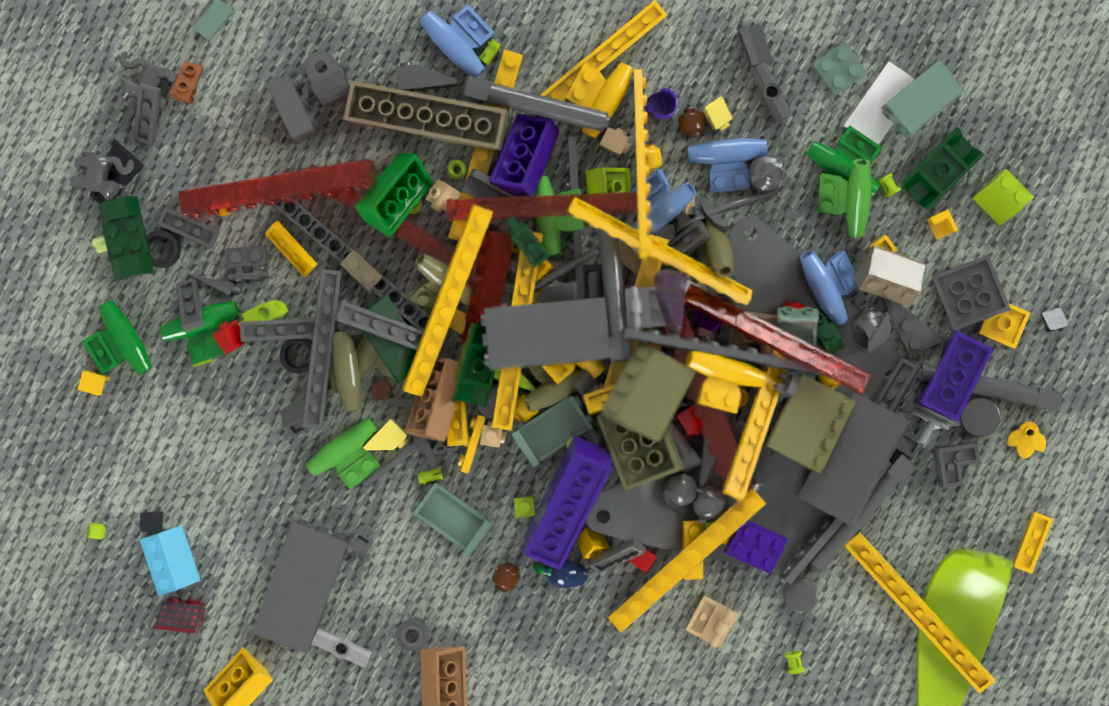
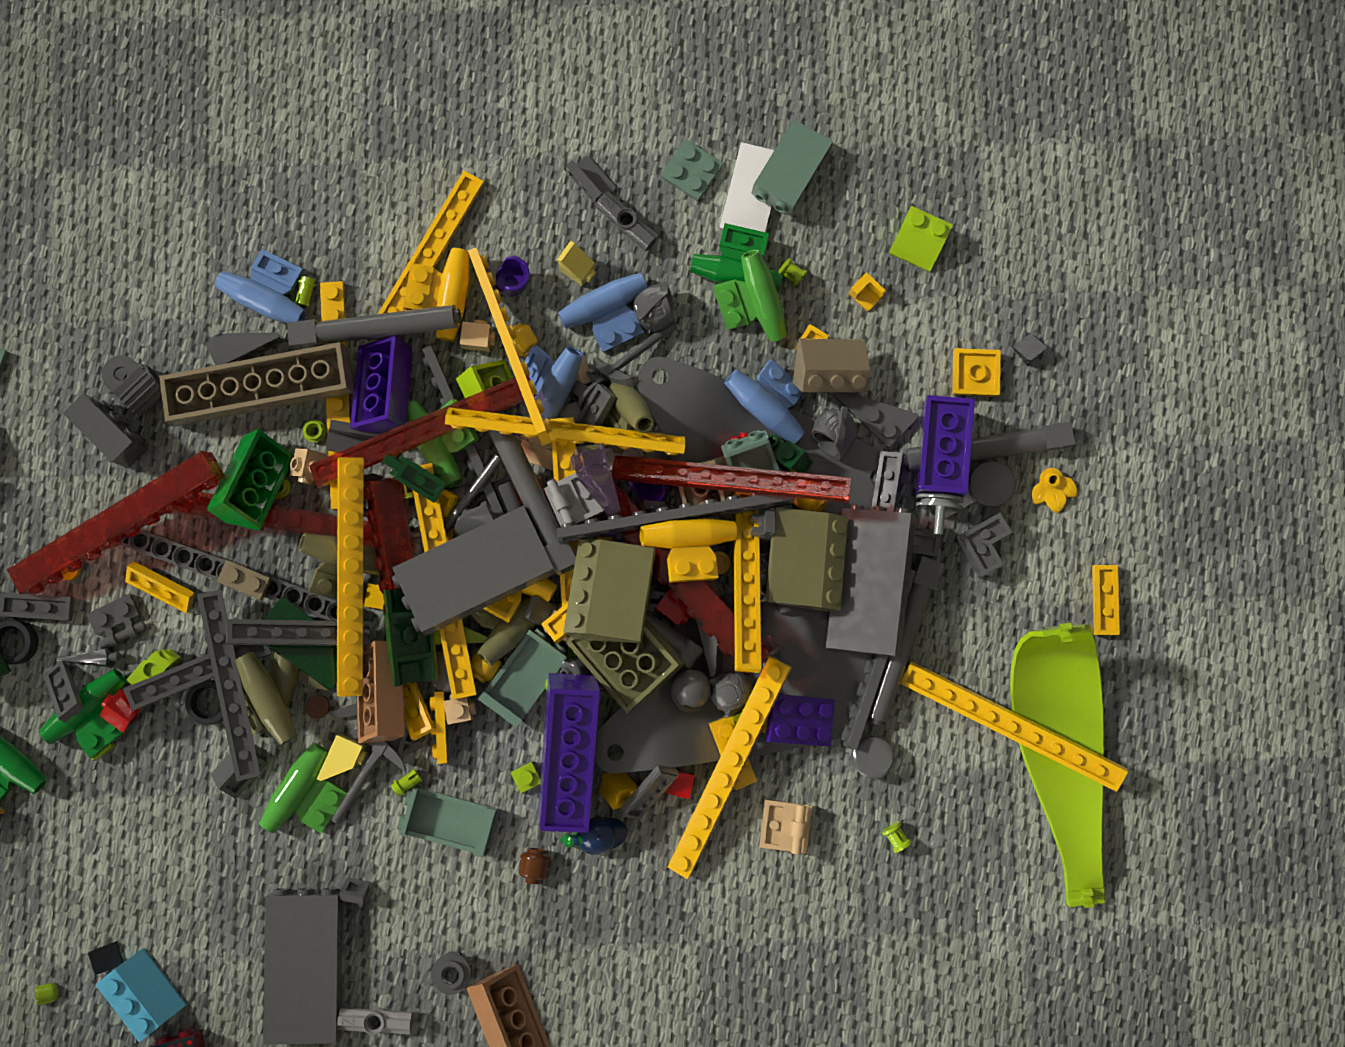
camera: 25 degrees left, 5 degrees down
(691, 123) = (553, 285): reddish brown head -> none
(941, 169) = (842, 235): dark green piece -> none
(971, 293) = (927, 353): dark grey plate -> none

